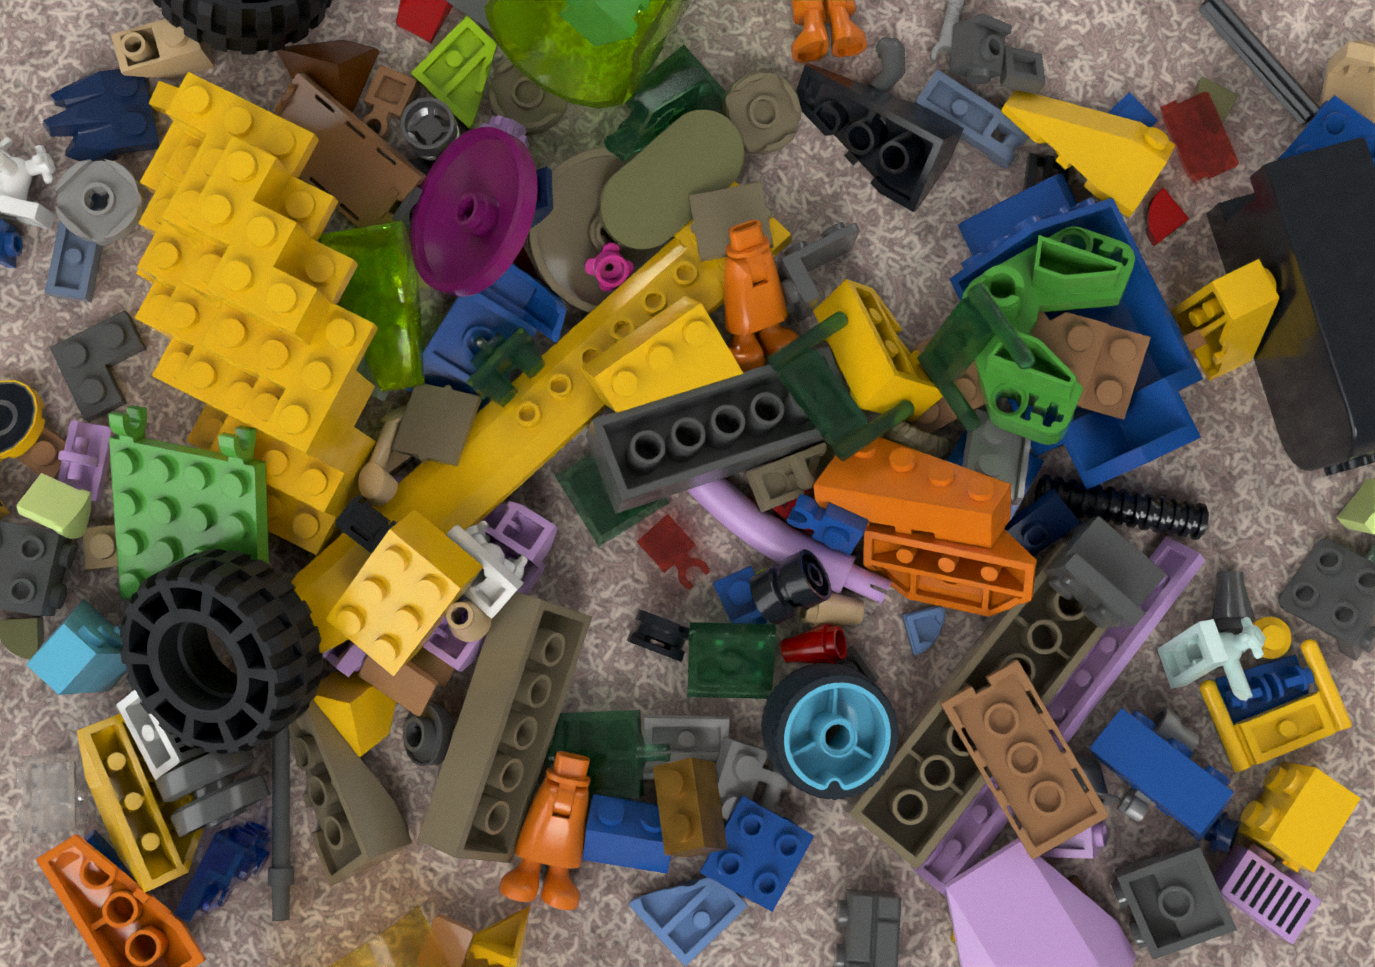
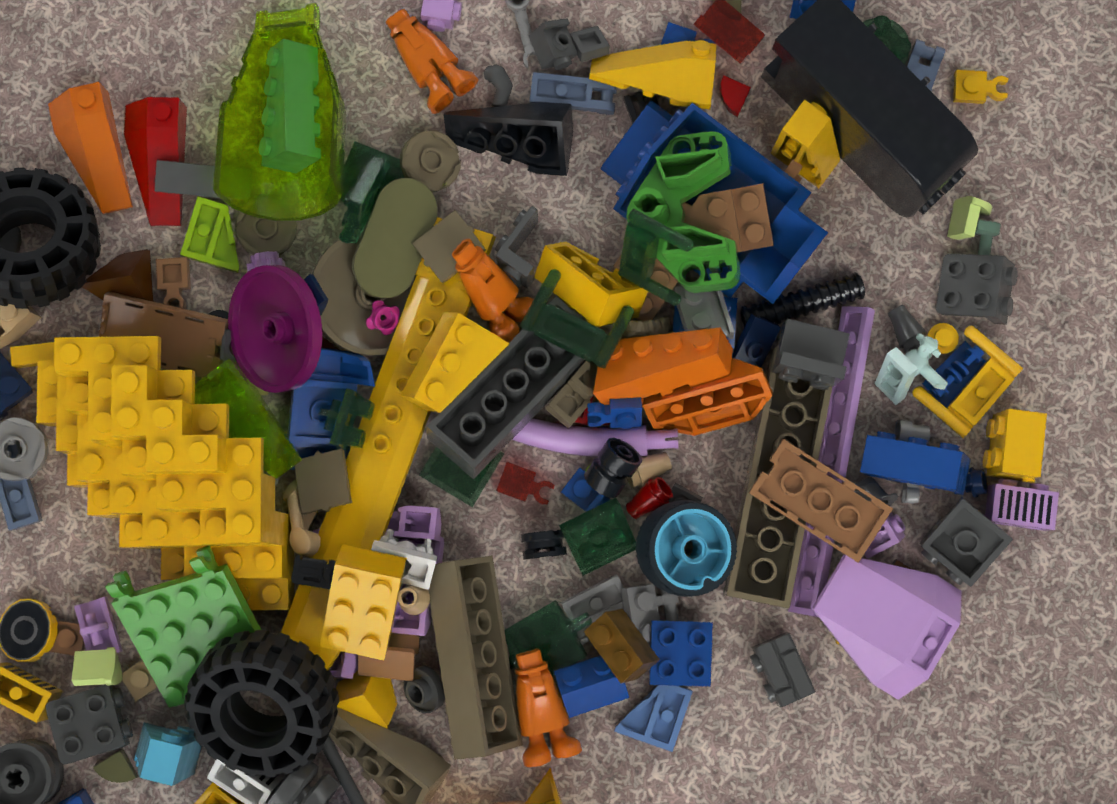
camera: 25 degrees left, 0 degrees up
(87, 362) = (61, 562): dark grey plate -> none
(428, 128) = (213, 286): flat silver wheel -> none
(923, 627) = (714, 449): medium blue tile -> none

